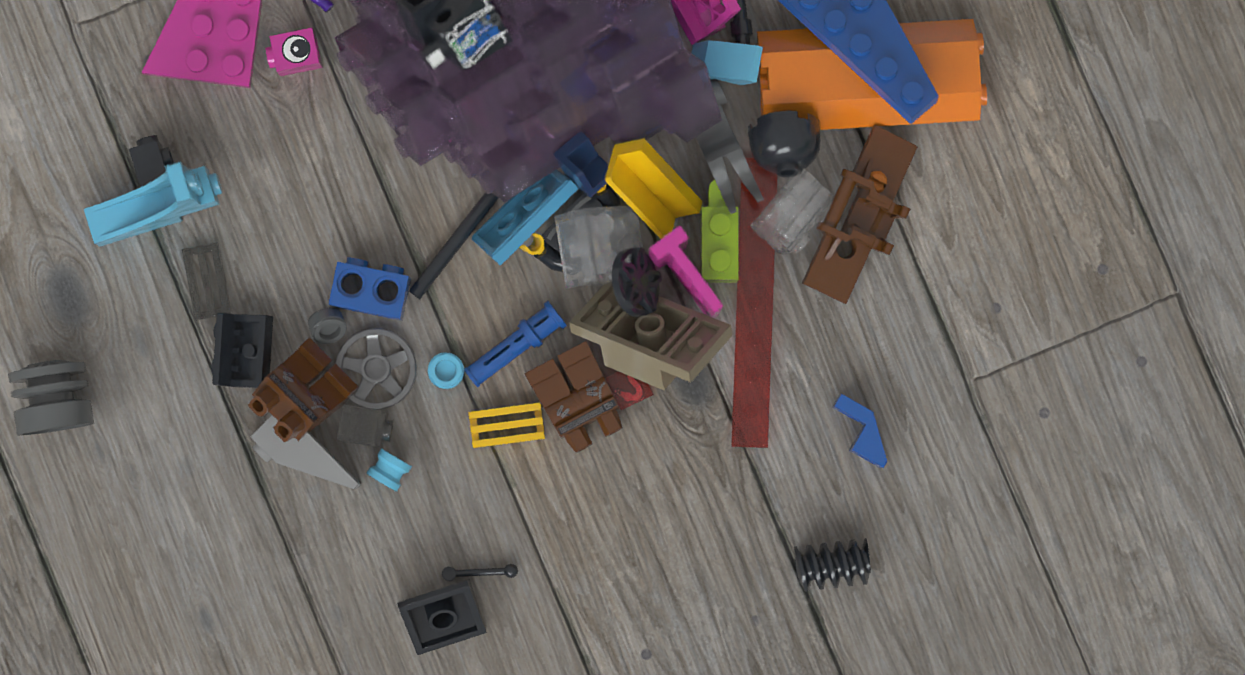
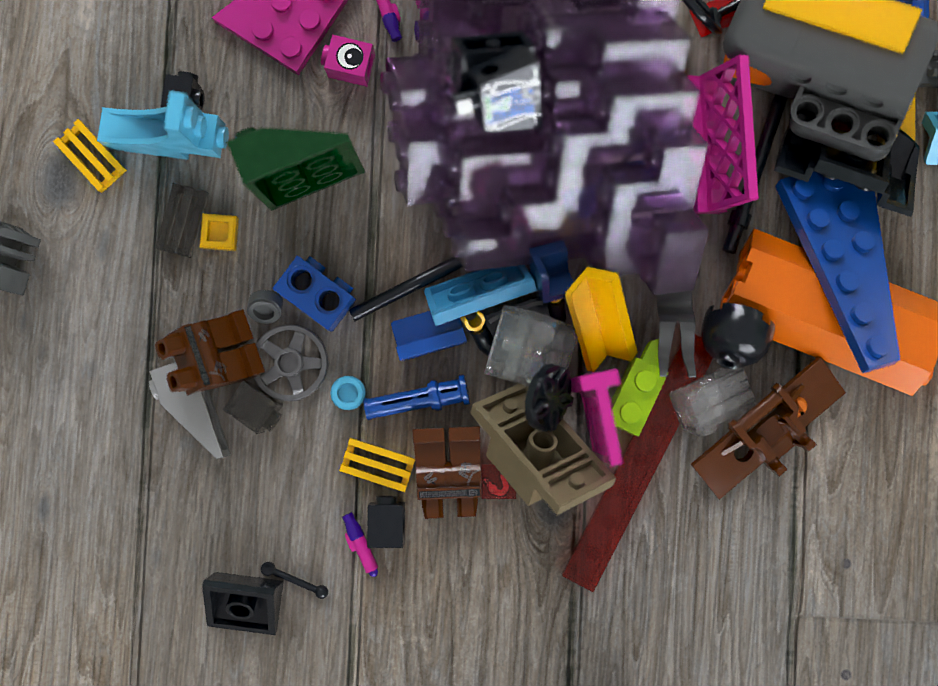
camera: 30 degrees right, 0 degrees up
(59, 250) = (71, 136): none -> yellow tile
(241, 350) = (180, 291): black bracket -> none
(248, 276) = (219, 232): none -> yellow tile
(295, 179) = (292, 163): none -> dark green slope
(389, 469) = (257, 455): medium azure wheel -> none
(490, 283) = (420, 336): none -> blue panel
(523, 508) = (358, 543): none -> piece
(541, 474) = (386, 523): none -> black brick
(730, 61) = (725, 245): medium azure slope -> none
(868, 442) = (685, 626): blue slope -> none

